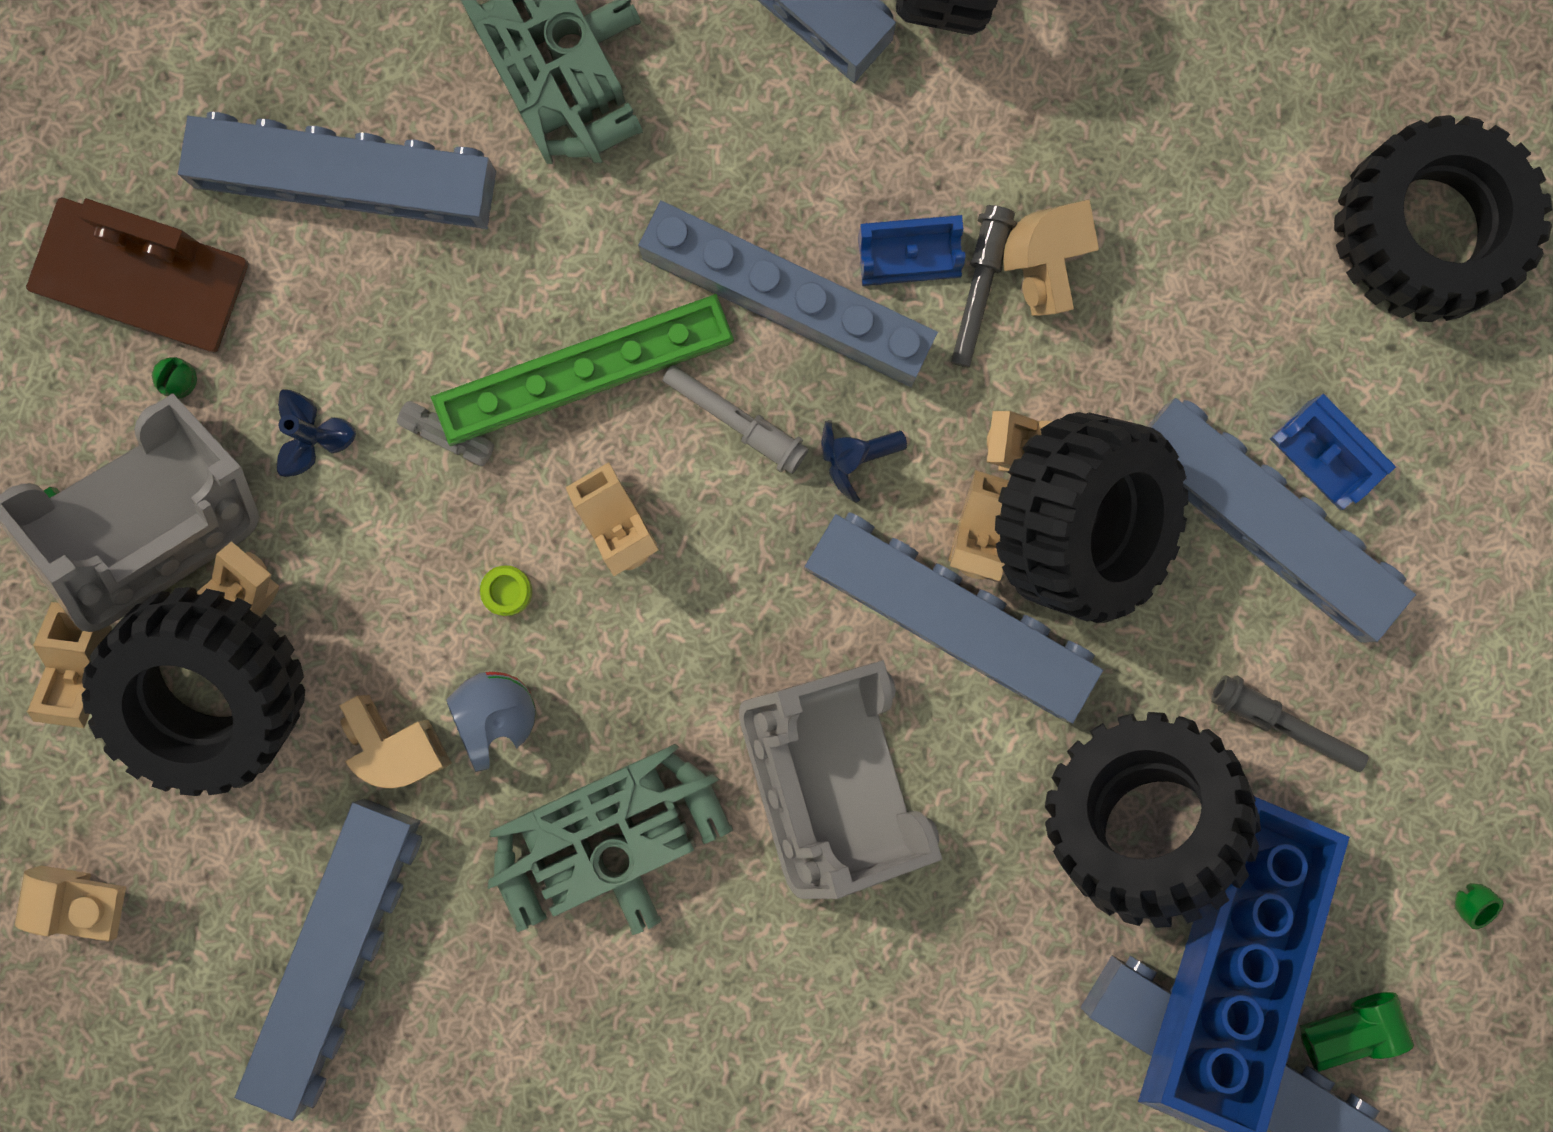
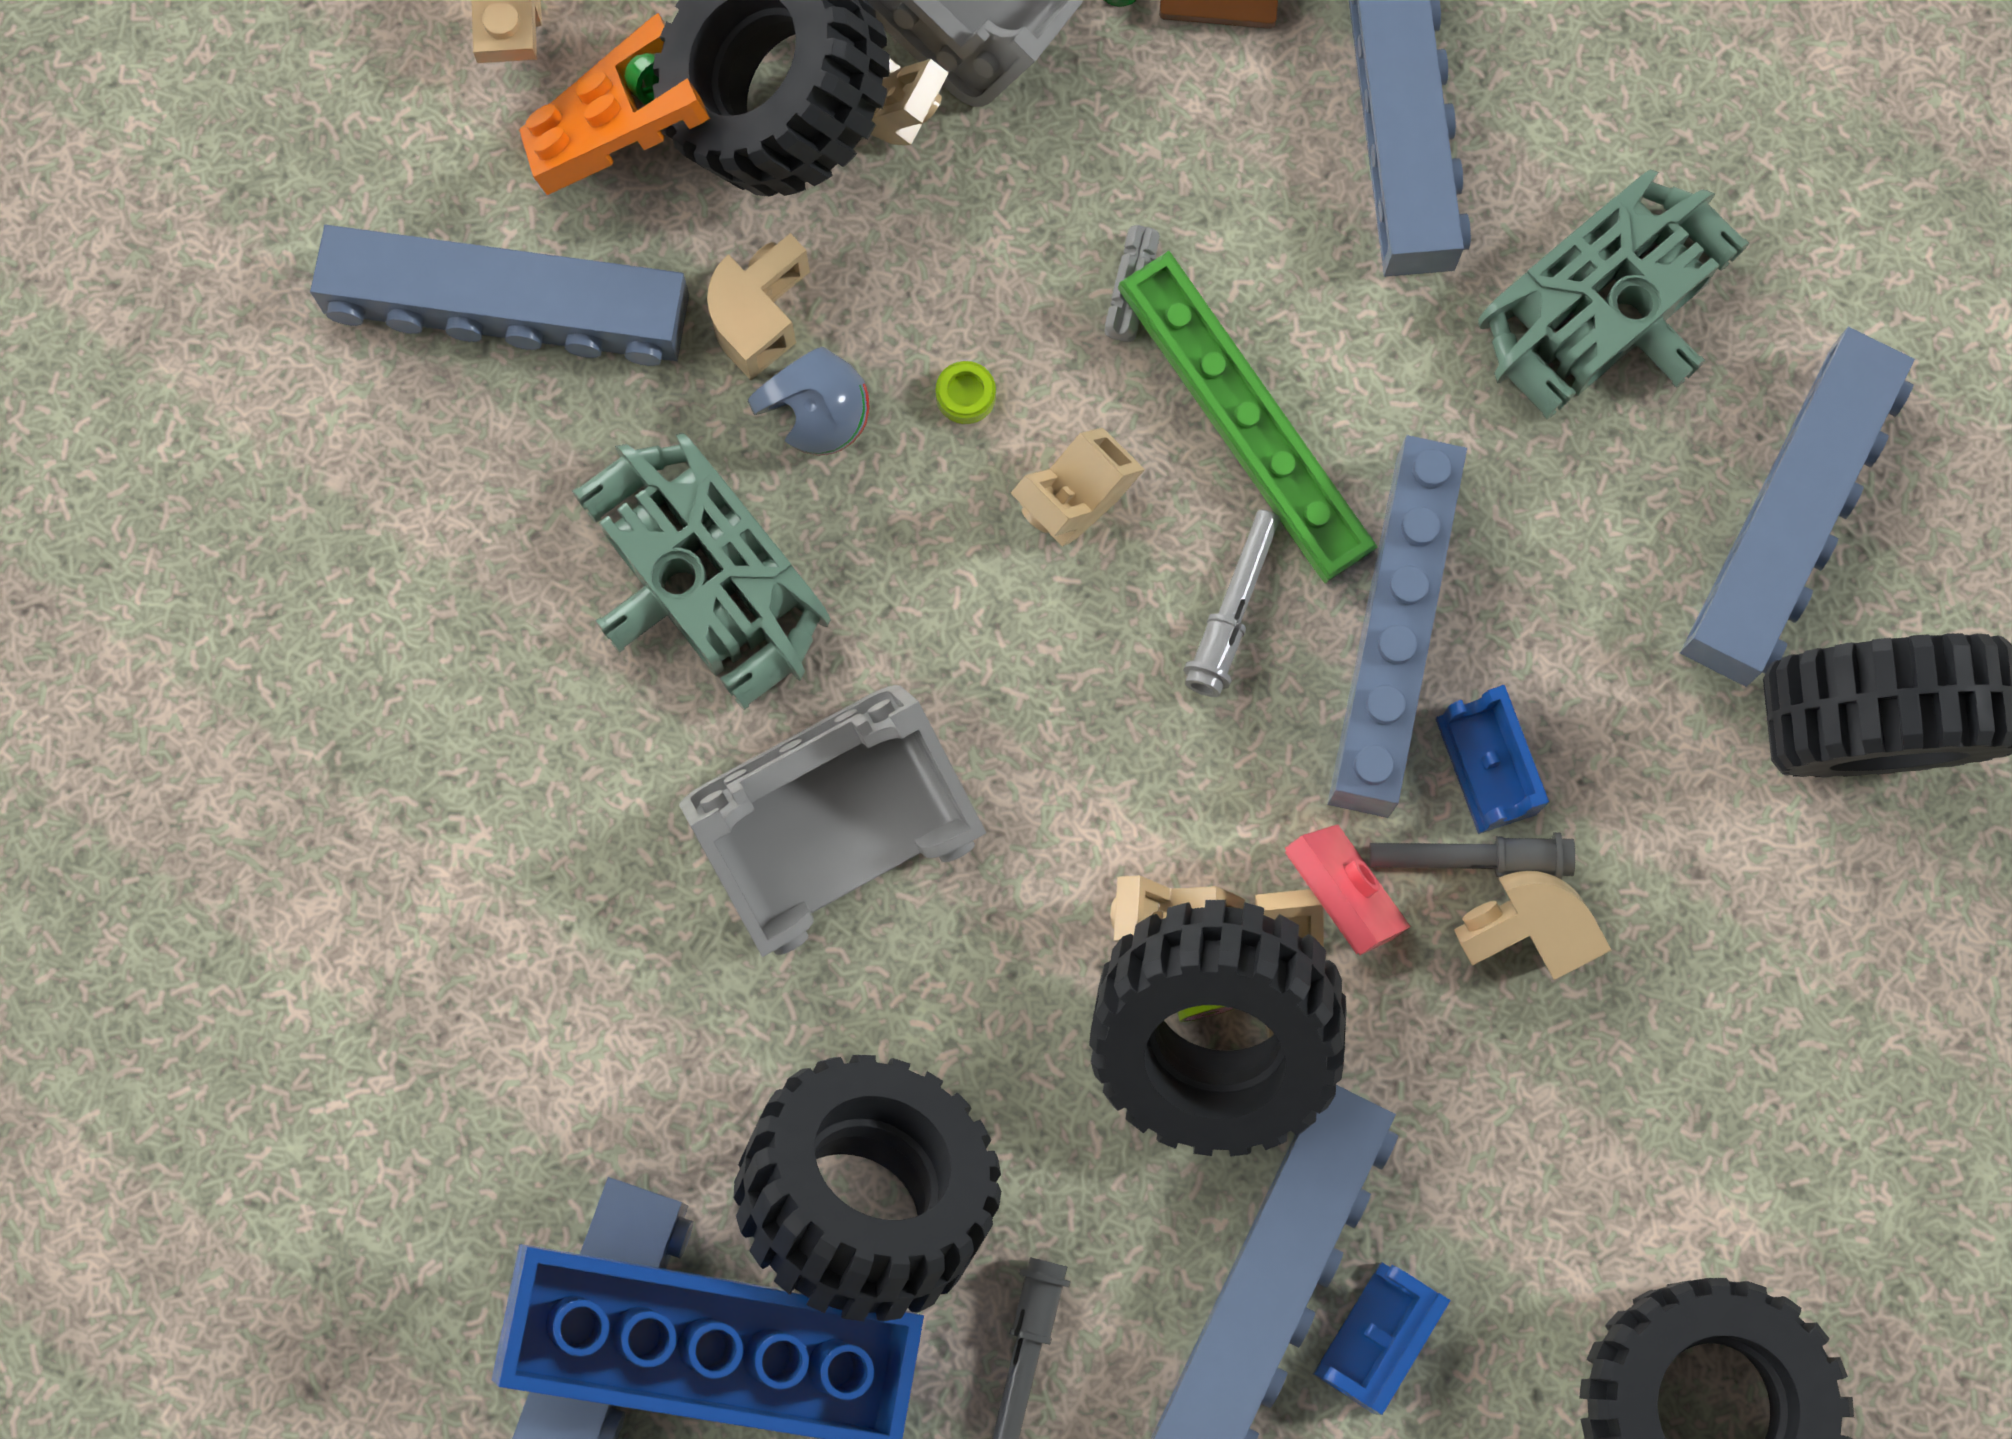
camera: 75 degrees right, 10 degrees down
(157, 800) = (641, 69): none -> green hinge
(194, 848) = (600, 116): none -> orange wing
(298, 421) = (1102, 122): dark blue plant -> none
(849, 453) = (1225, 739): dark blue plant -> none
(954, 619) = (1056, 910): sand blue brick -> none
(994, 389) = (1347, 888): none -> coral plate

